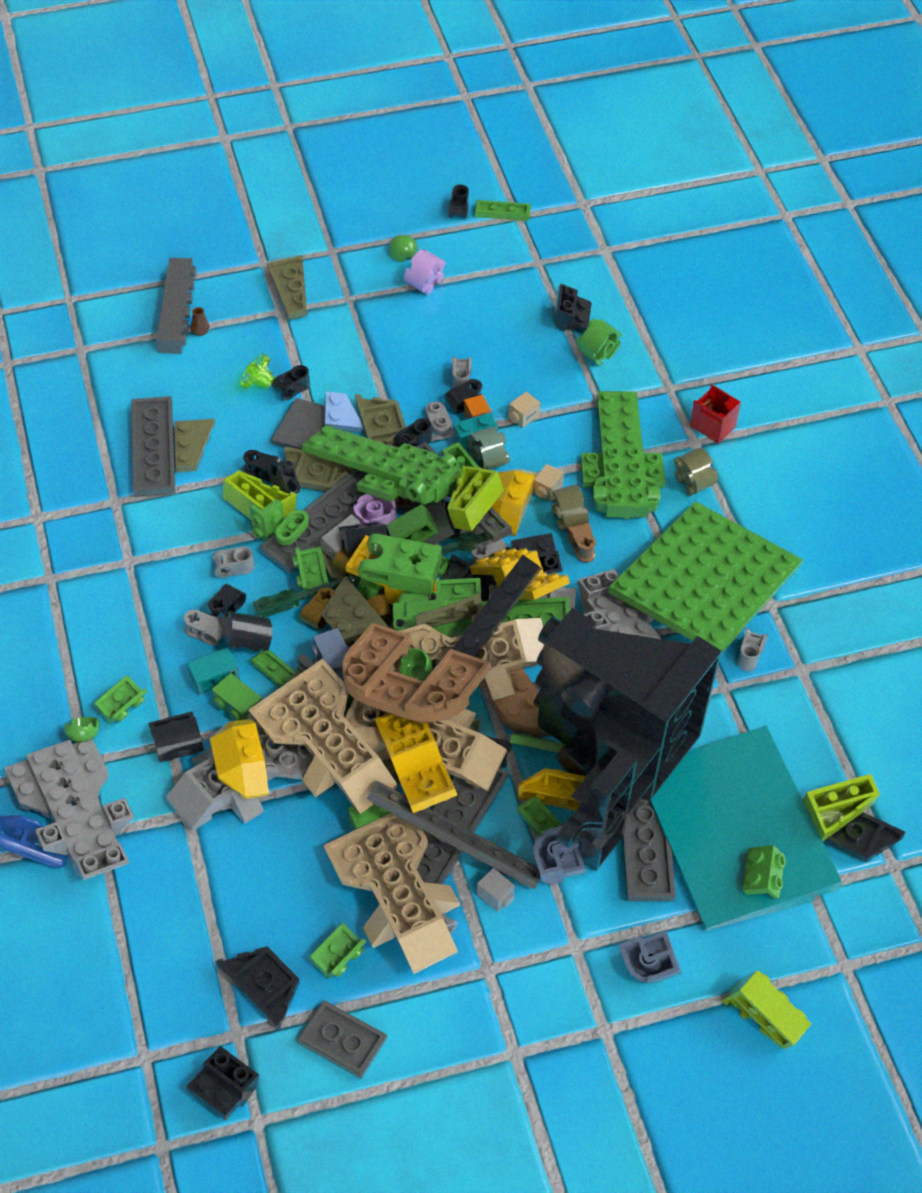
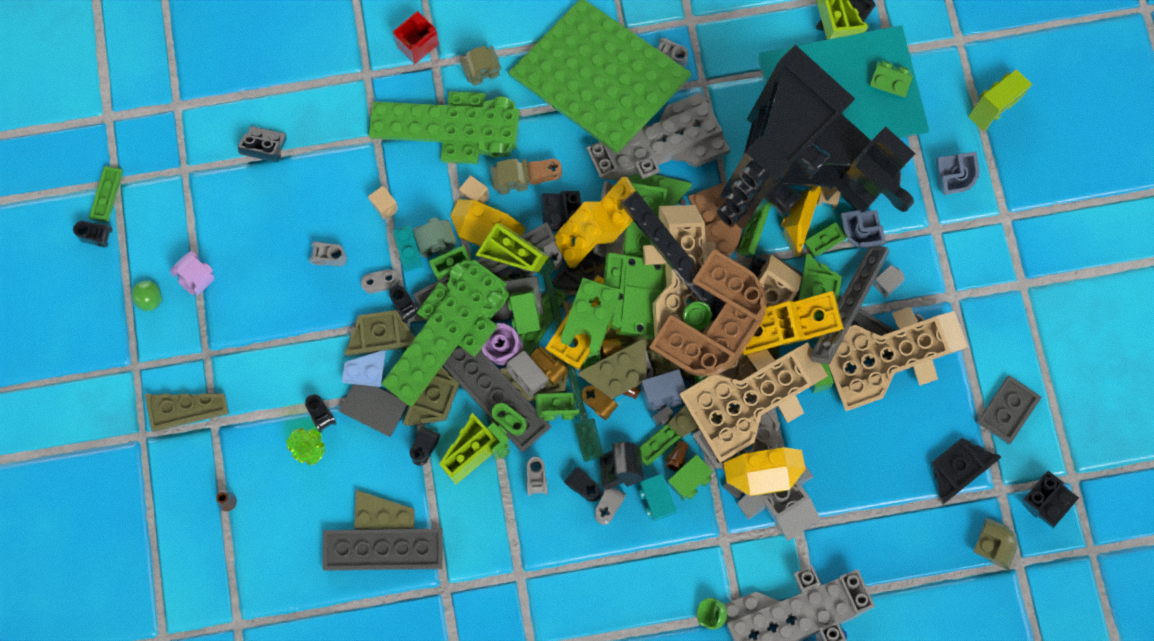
camera: 80 degrees left, 20 degrees up
(119, 699) = (683, 579): bright green bracket -> none
(167, 1026) = (996, 543): none -> olive brick
(175, 305) = (195, 524): dark grey brick -> none
(176, 736) = (724, 531): black brick -> none
(261, 685) = (676, 458): none -> reddish brown cone
(284, 477) = (449, 424): black piece -> none
(336, 951) = (938, 406): bright green bracket -> none
(352, 535) = (535, 353): black hinge -> none
(451, 613) = (645, 274): olive wing -> none
(456, 396) = (360, 256): black piece -> none
(475, 406) = (381, 244): orange brick -> none
(476, 807) = (818, 280): none -> bright green wing
(599, 341) = (312, 123): bright green brick -> none

